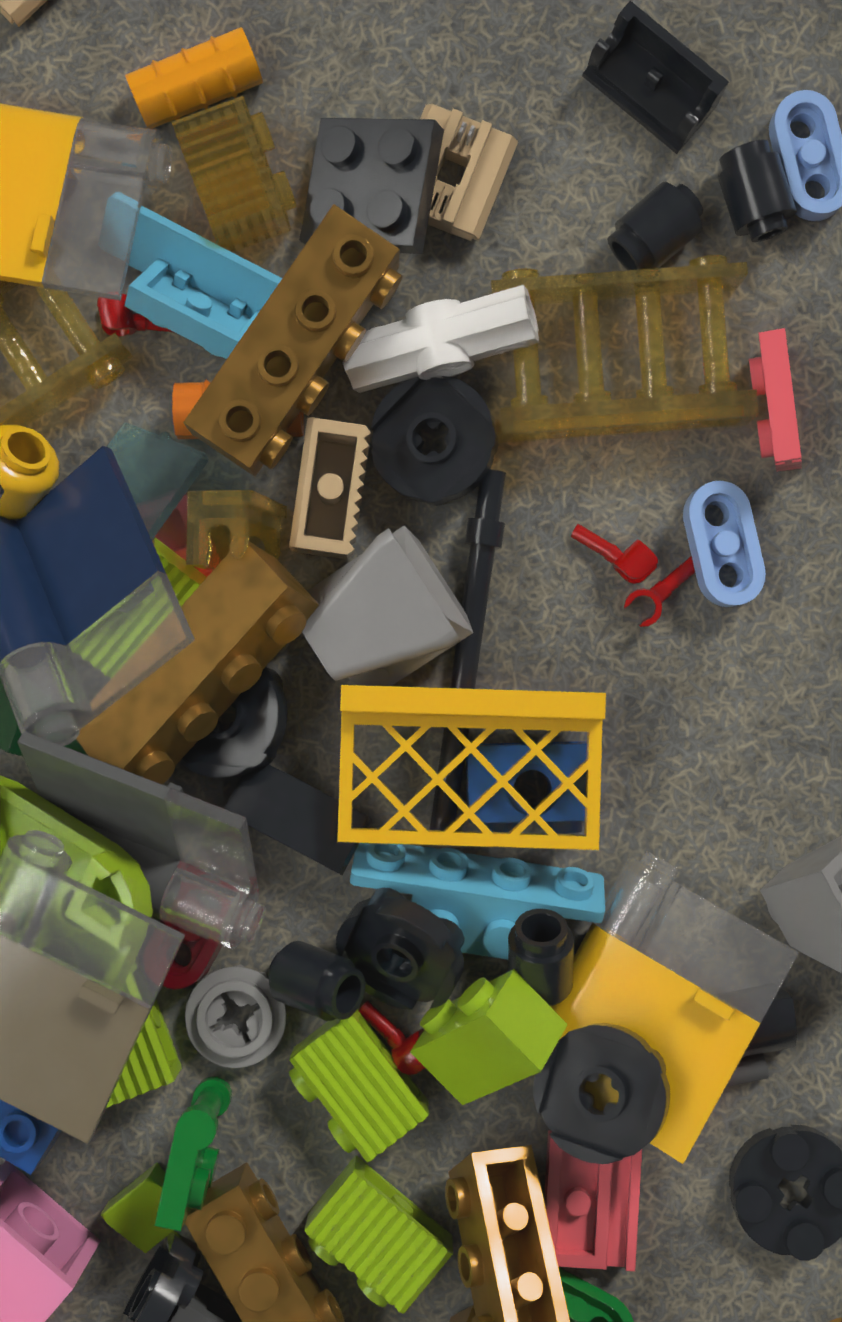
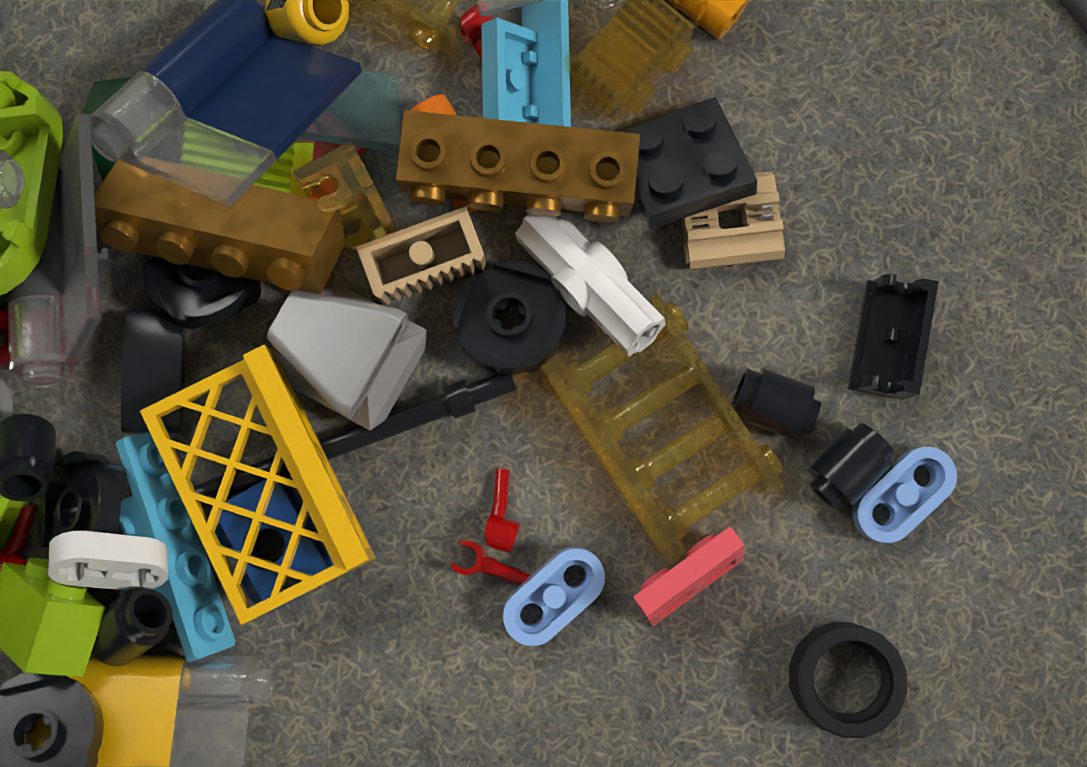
camera: 60 degrees right, 5 degrees down
(472, 942) = (107, 560): none -> white beam

